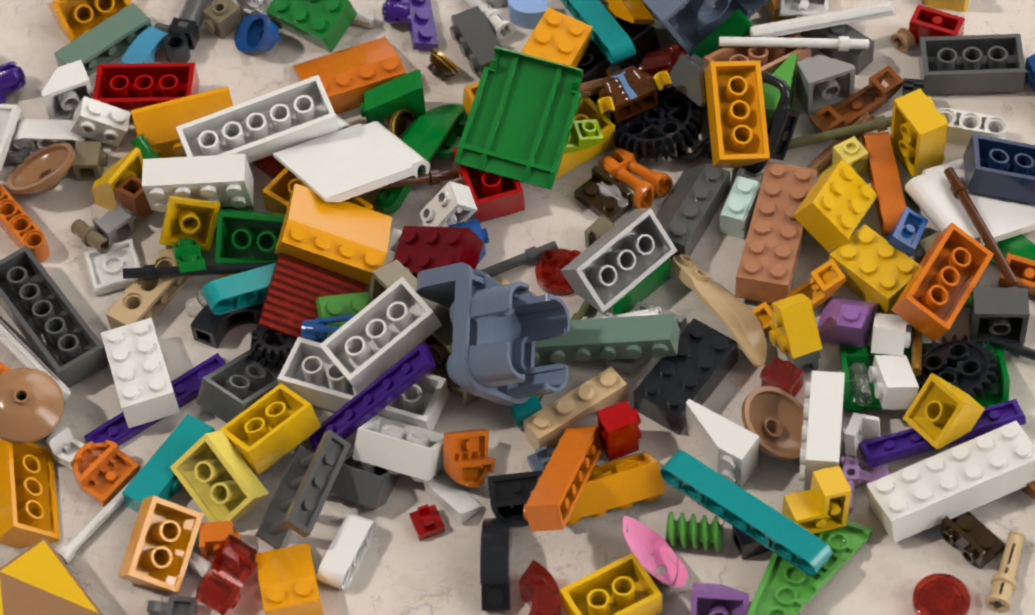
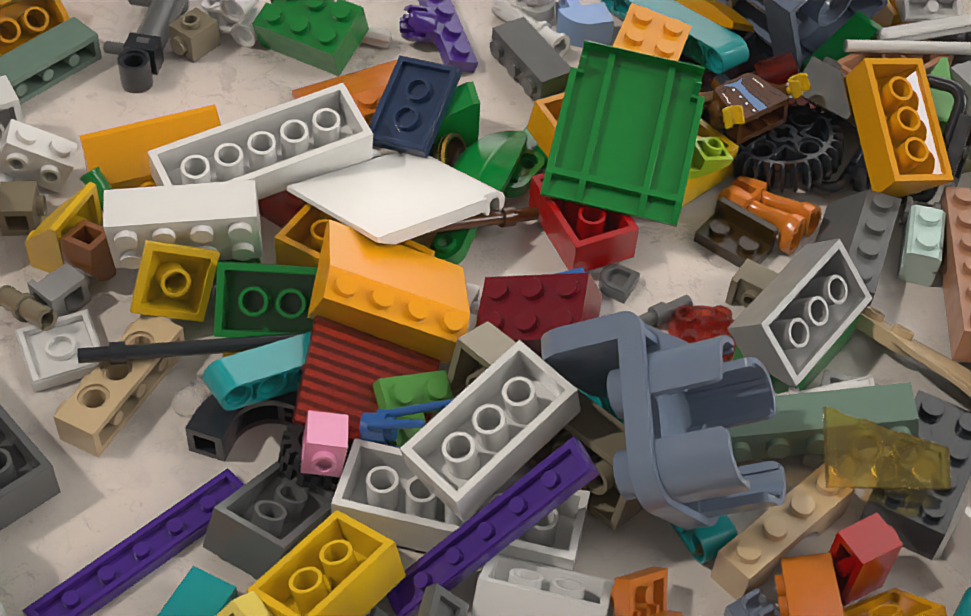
camera: 15 degrees left, 5 degrees down
(139, 373) = (112, 505): white brick -> none
(144, 46) = (89, 72): dark azure slope -> none
(144, 83) = (92, 107): red brick -> none
(188, 255) = (175, 327): green slope -> none
(256, 34) = (241, 52): blue piece -> none
(276, 339) = (324, 443): none -> bright pink brick
(374, 88) = (413, 105): none -> dark blue tile
(441, 65) = (490, 83): dark brown piece -> none
(450, 206) = (541, 250): white brick -> none
(509, 229) = (618, 282): none -> dark grey tile
(640, 364) = (875, 457): none -> clear yellow wing

